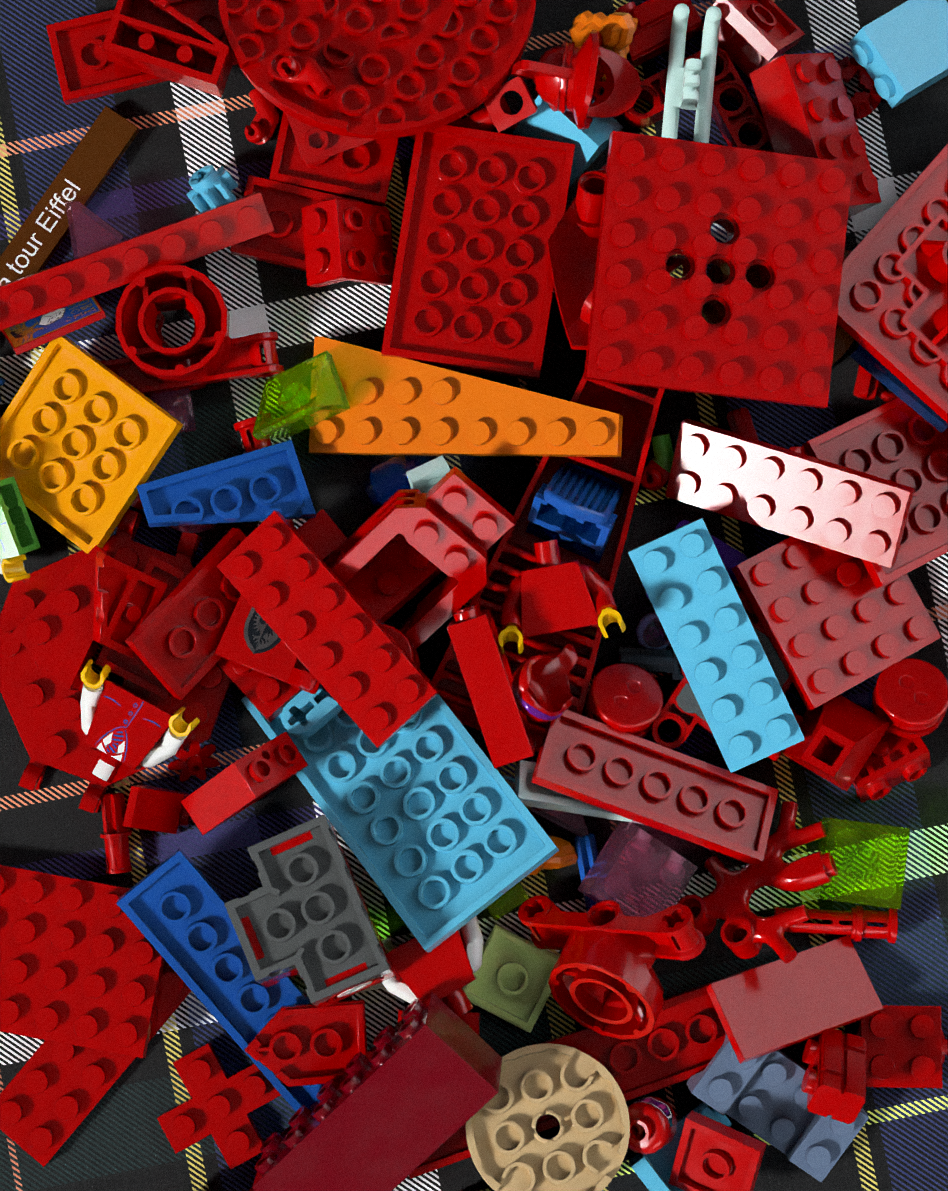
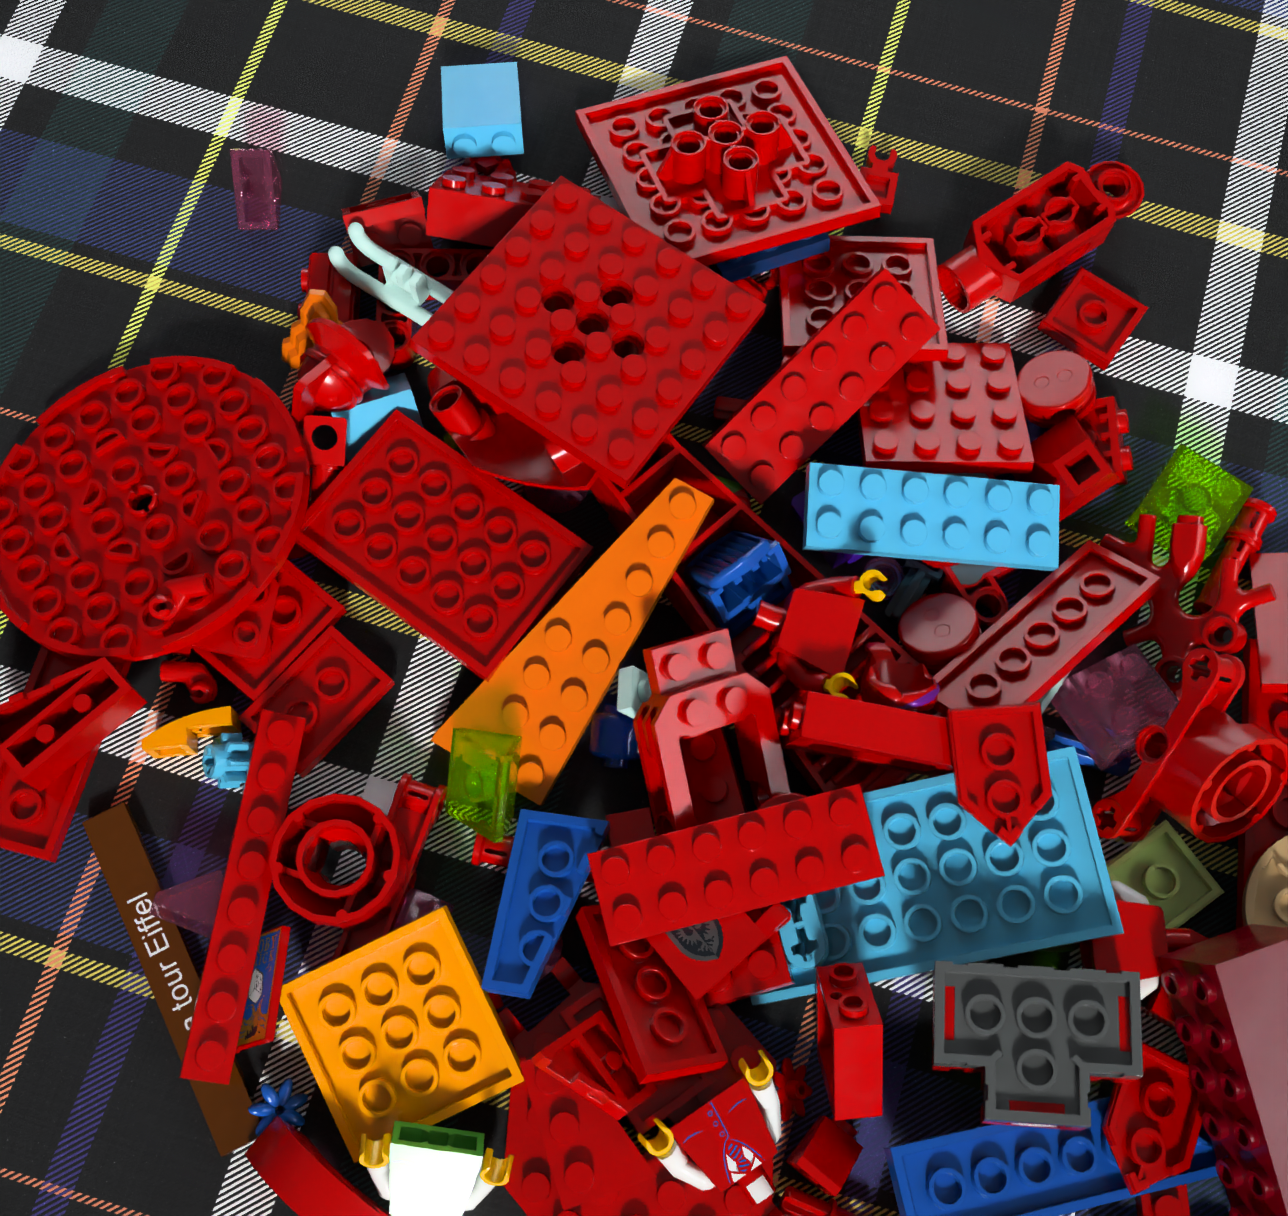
camera: 70 degrees left, 15 degrees down
(213, 141) = (182, 735): none -> light orange slope
(347, 243) = (359, 660): red bracket -> none
(509, 794) = (1000, 765): none -> red tile

